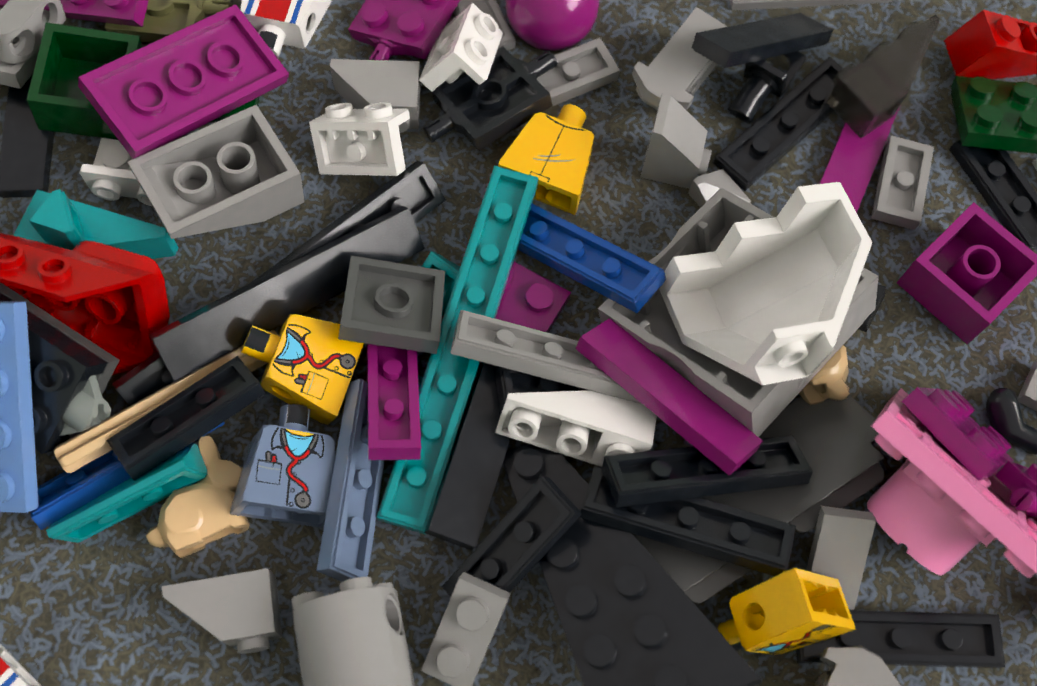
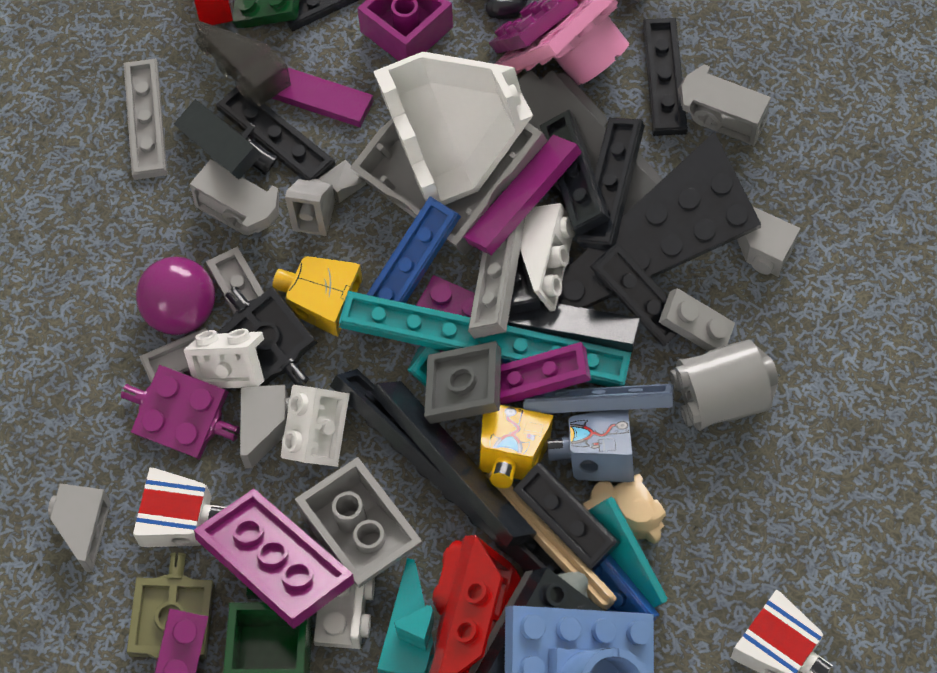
camera: 85 degrees left, 5 degrees down
(233, 607) = (699, 474): light grey slope -> none
(787, 613) = (664, 117): yellow torso -> none
(842, 548) = (619, 100): light grey tile -> none
(902, 182) = (327, 59): light grey plate -> none

